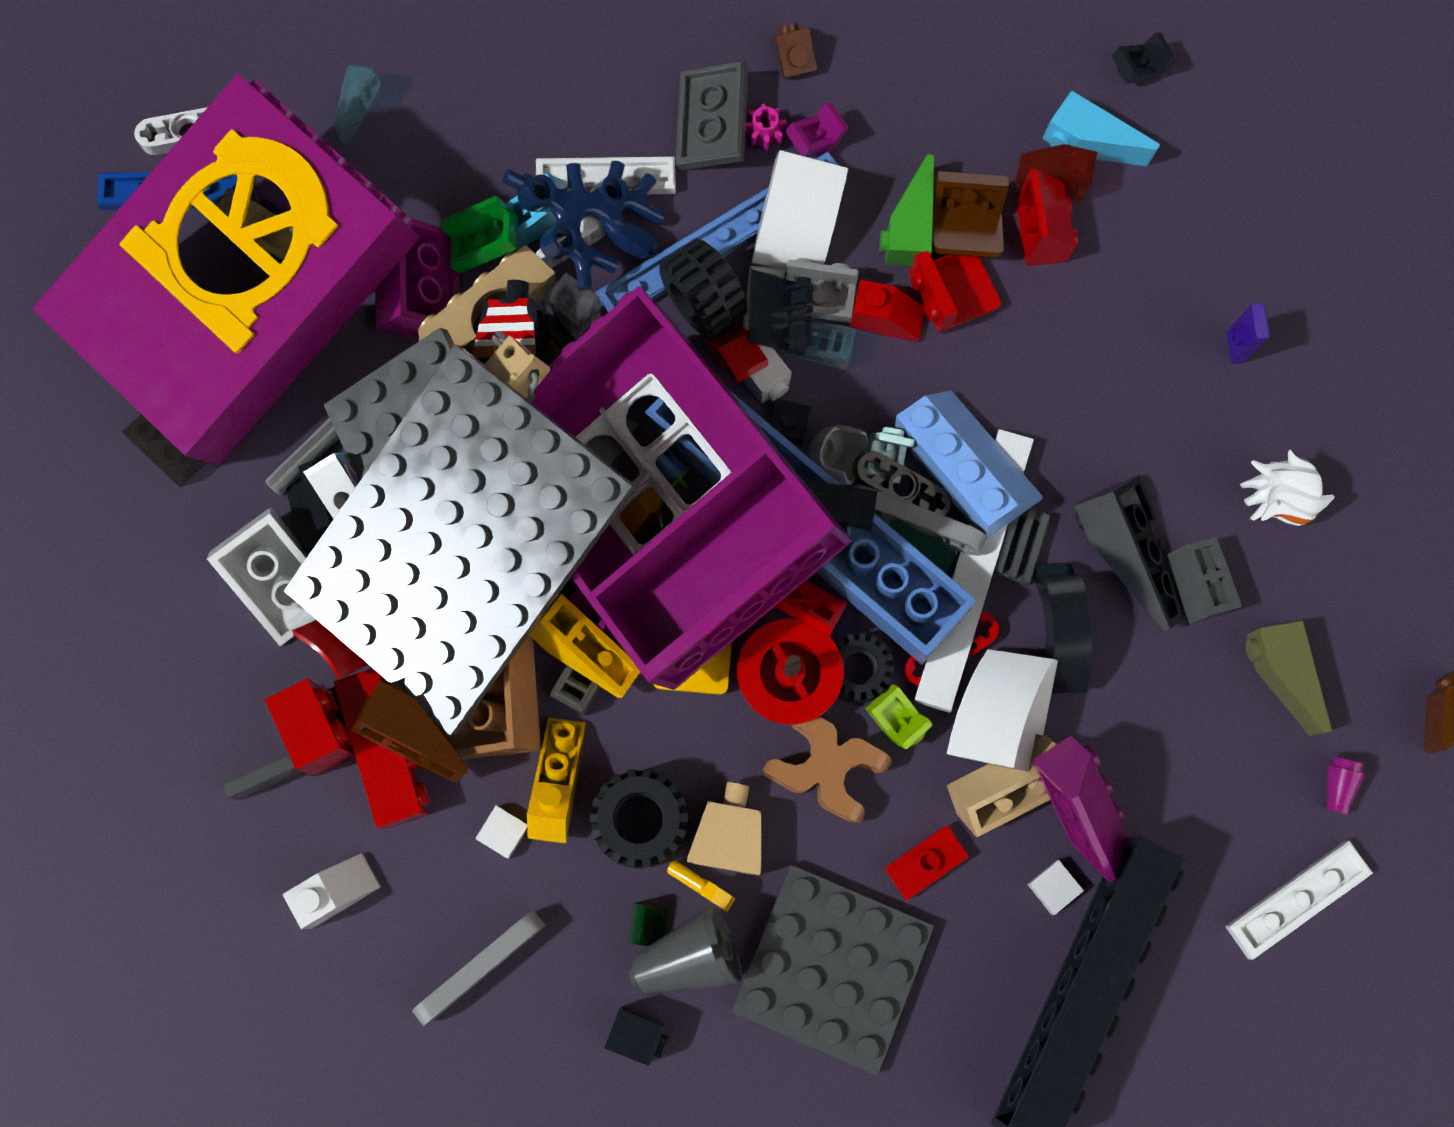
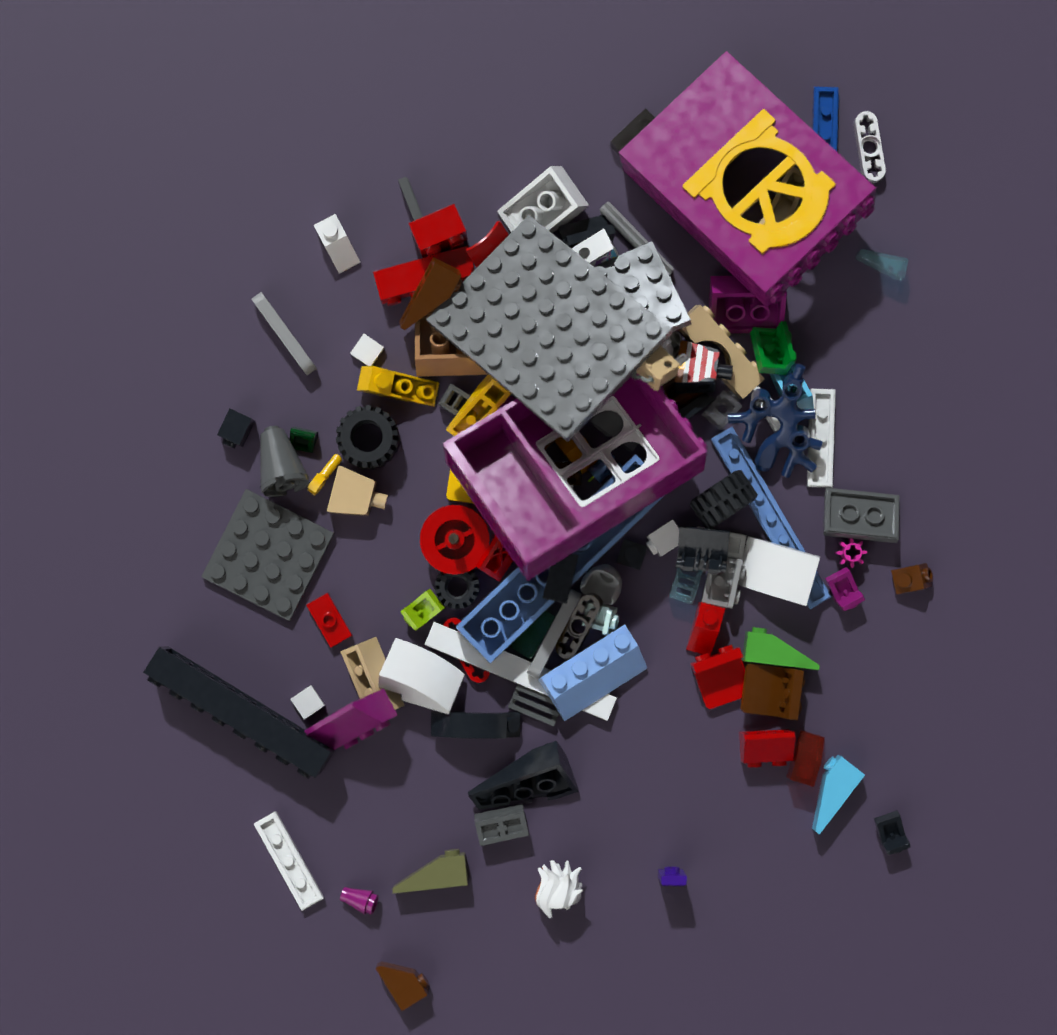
camera: 100 degrees right, 10 degrees up
(735, 352) = (673, 519): red slope -> none
(828, 768) = (392, 560): medium nougat piece -> none

